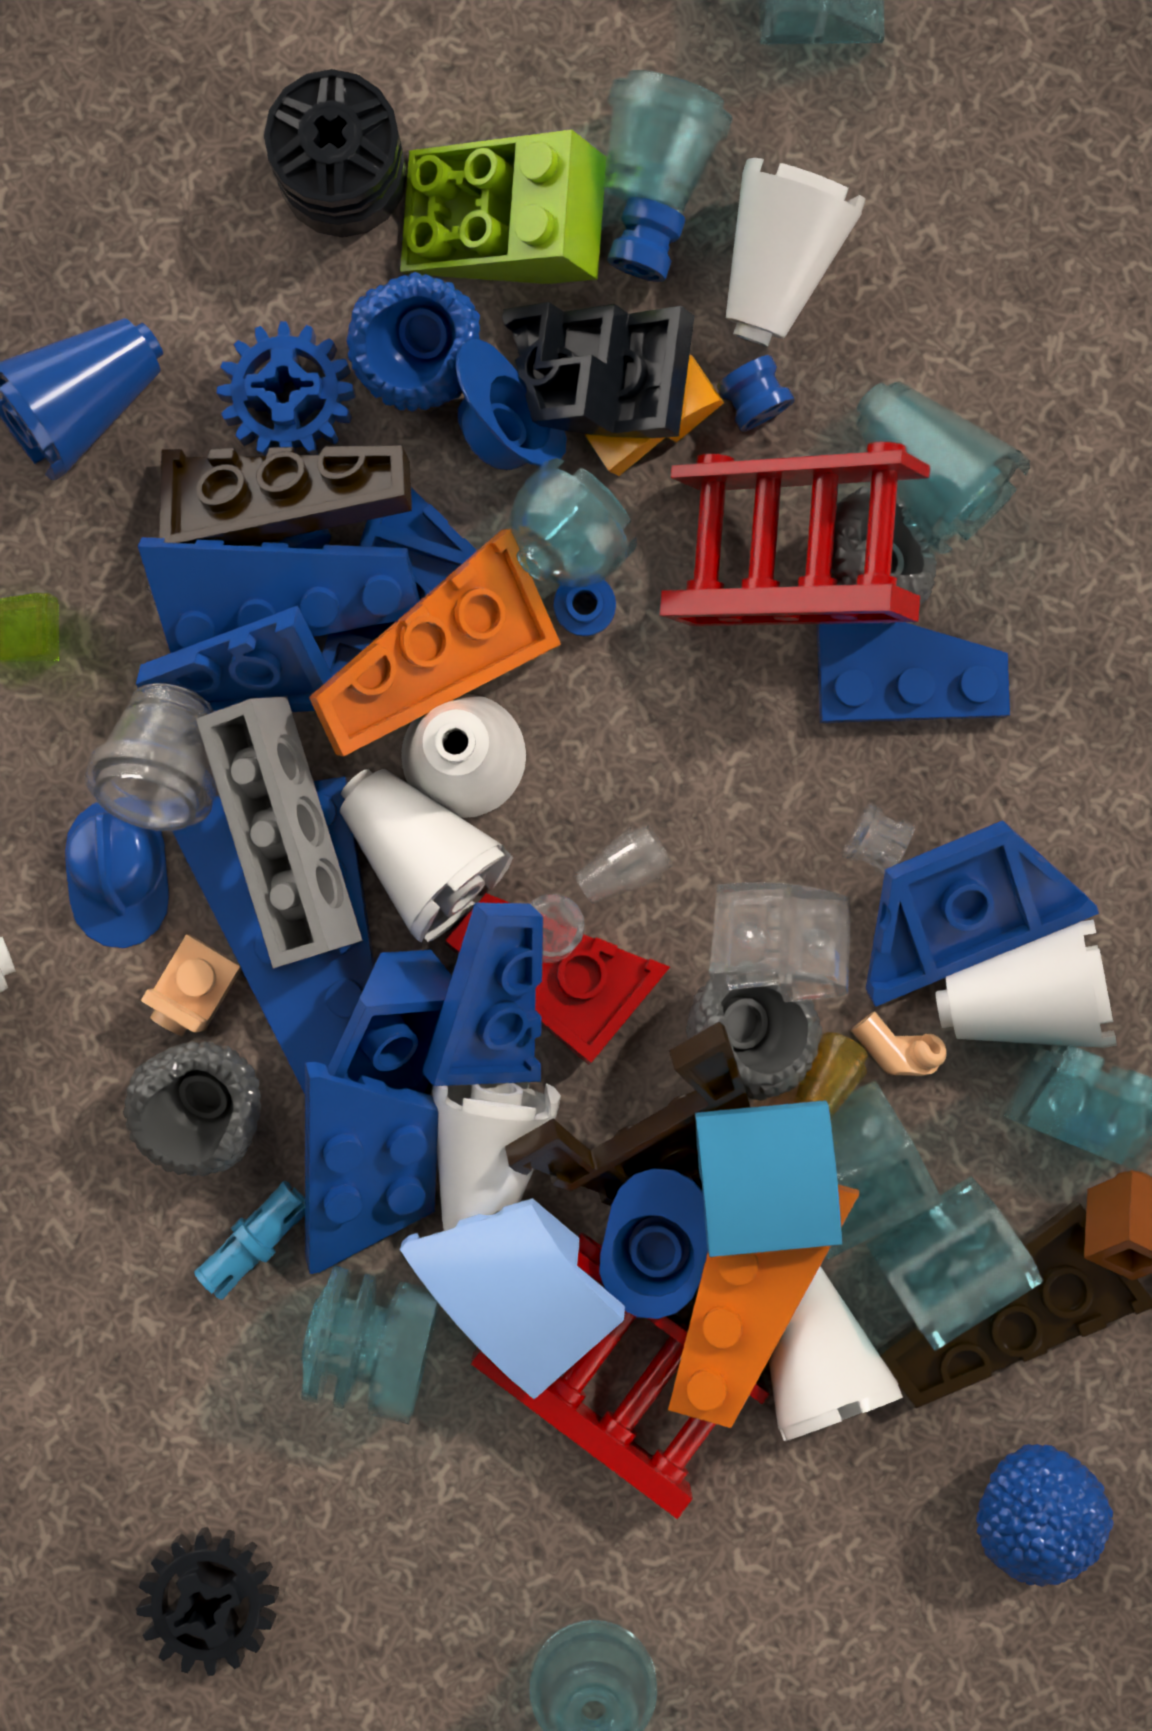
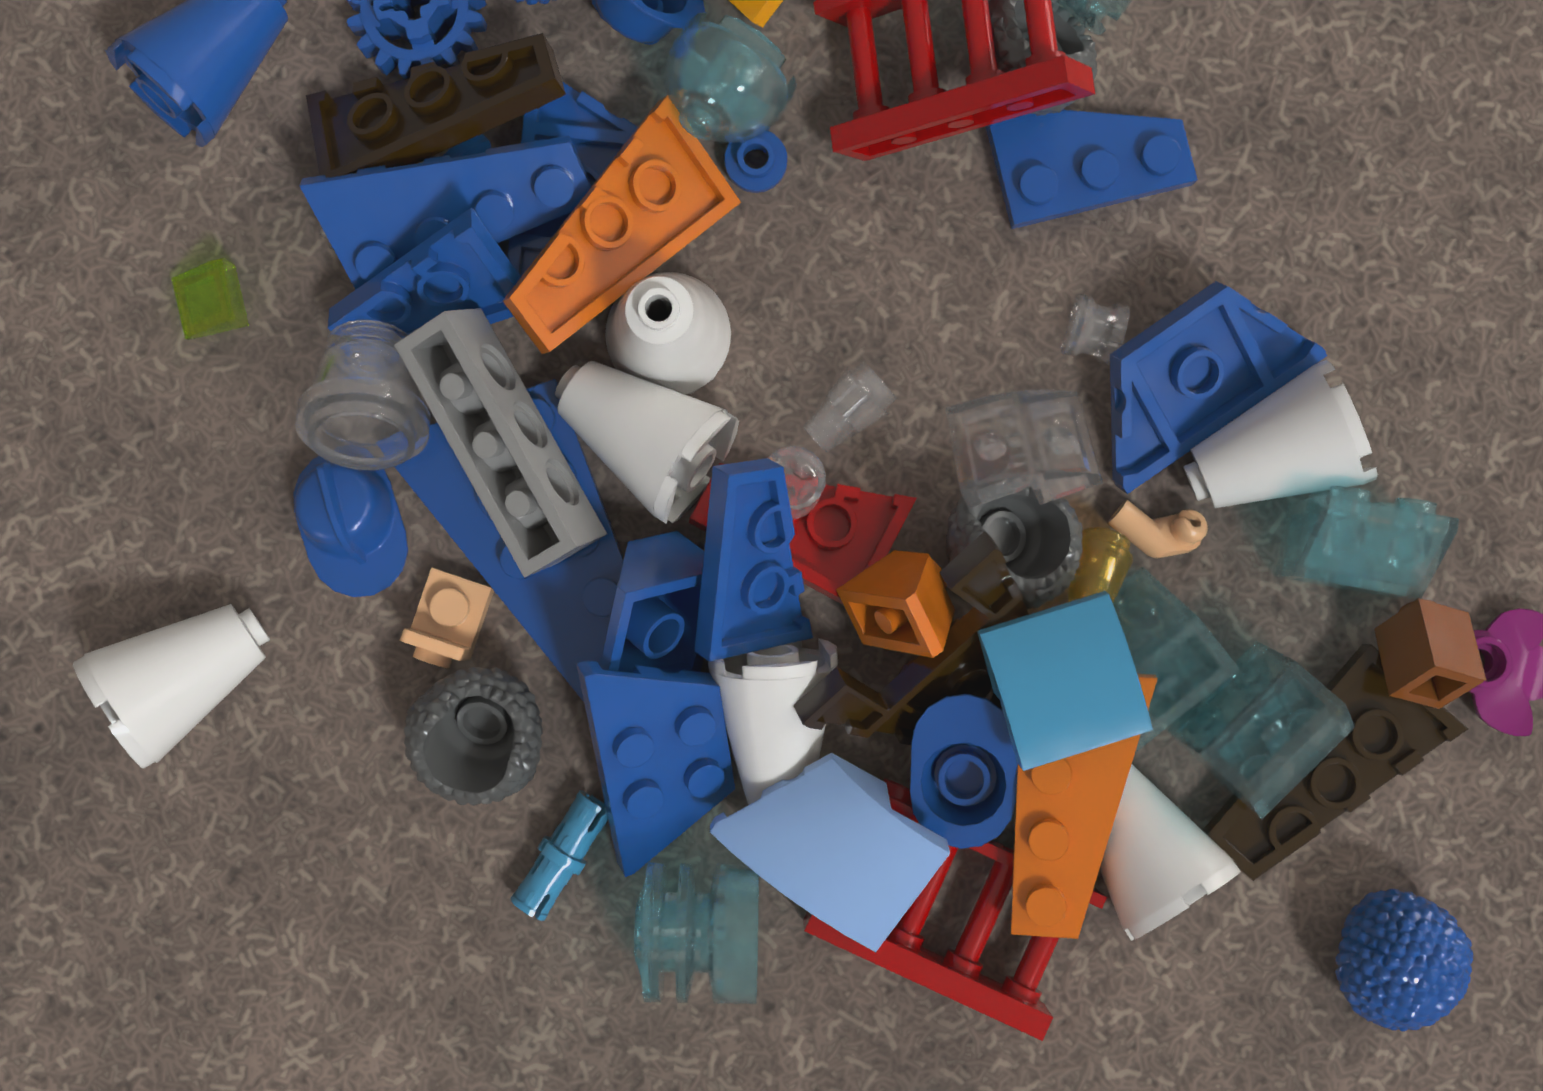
camera: 15 degrees left, 0 degrees up
(630, 1069) = (900, 604): none -> orange slope

